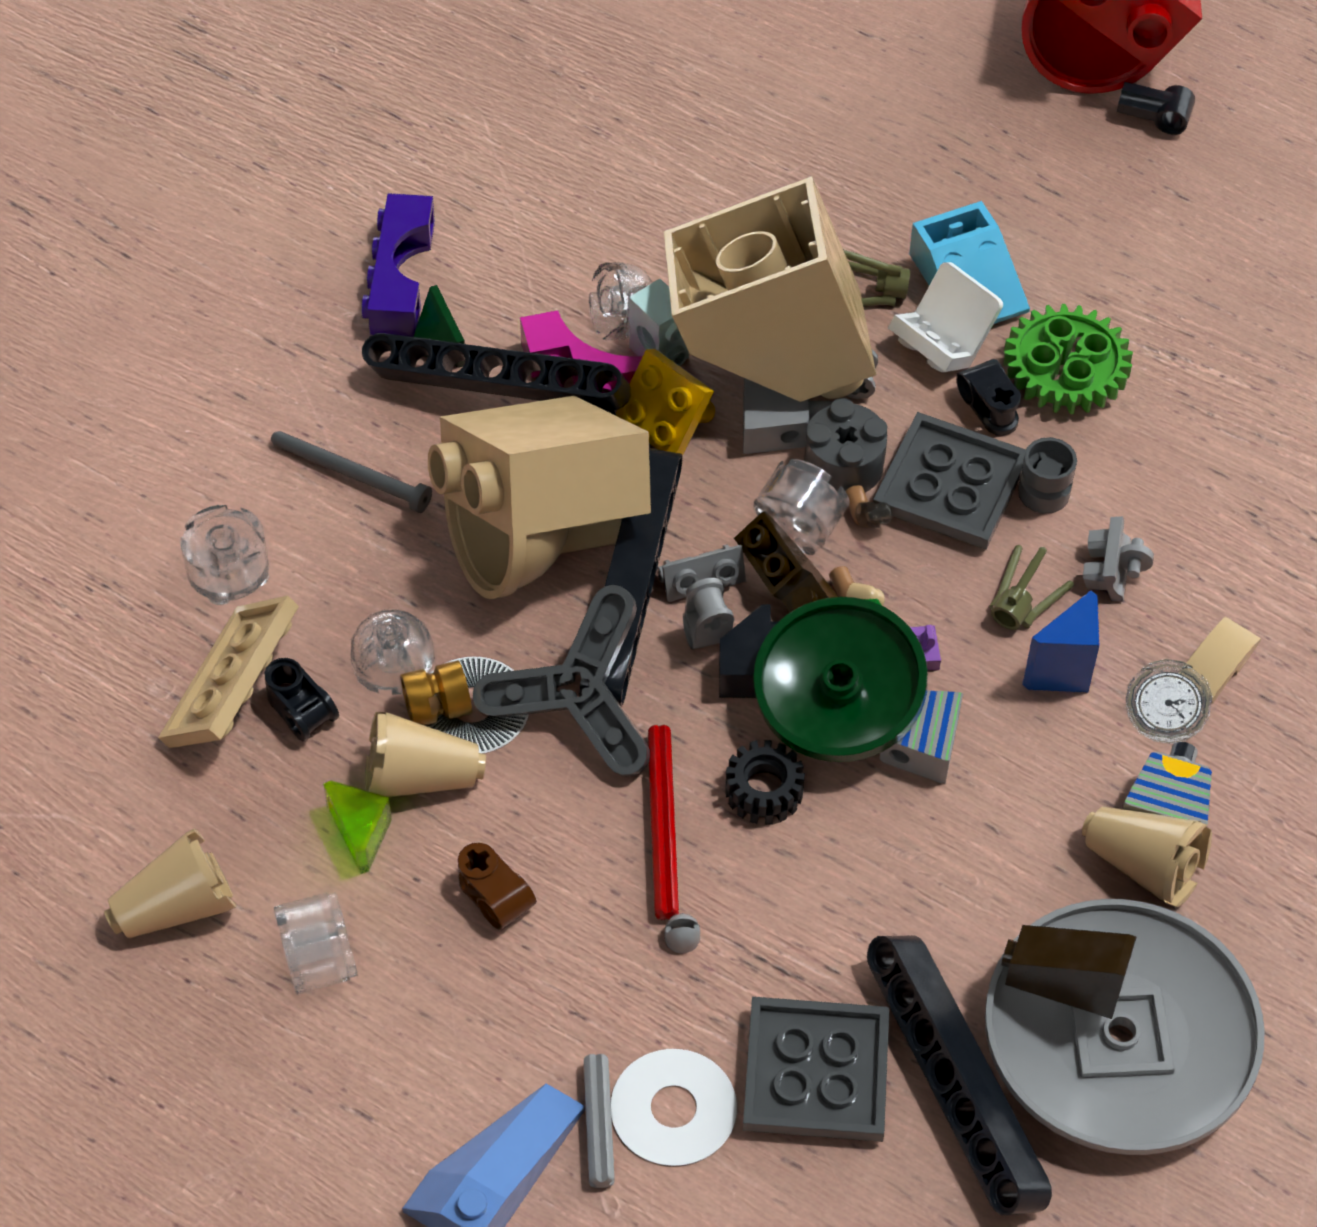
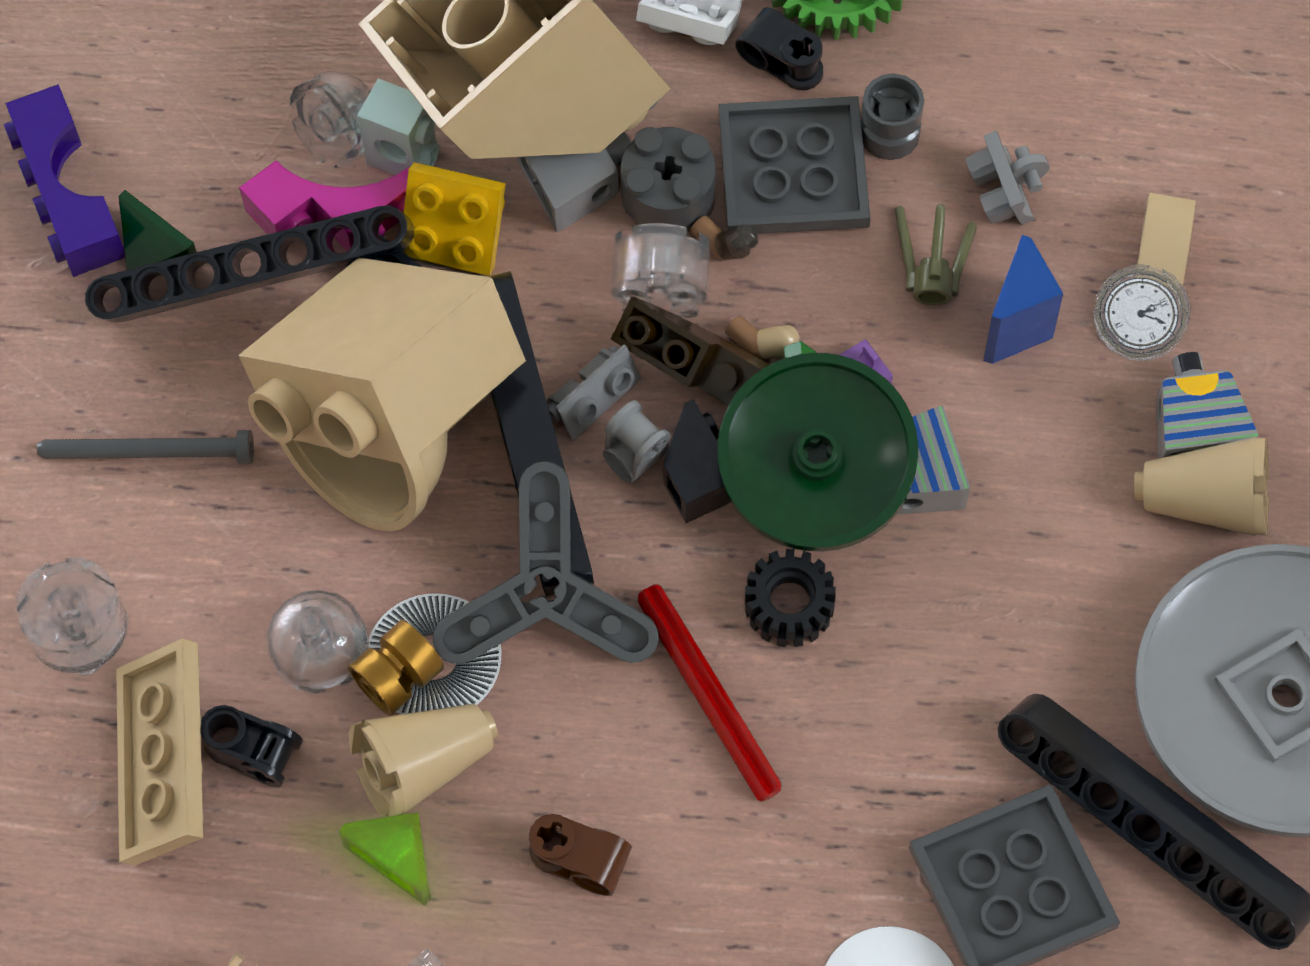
camera: 25 degrees left, 10 degrees up
(685, 937) = (802, 812): light grey hinge -> none
(1070, 966) = (1221, 658): dark brown slope -> none

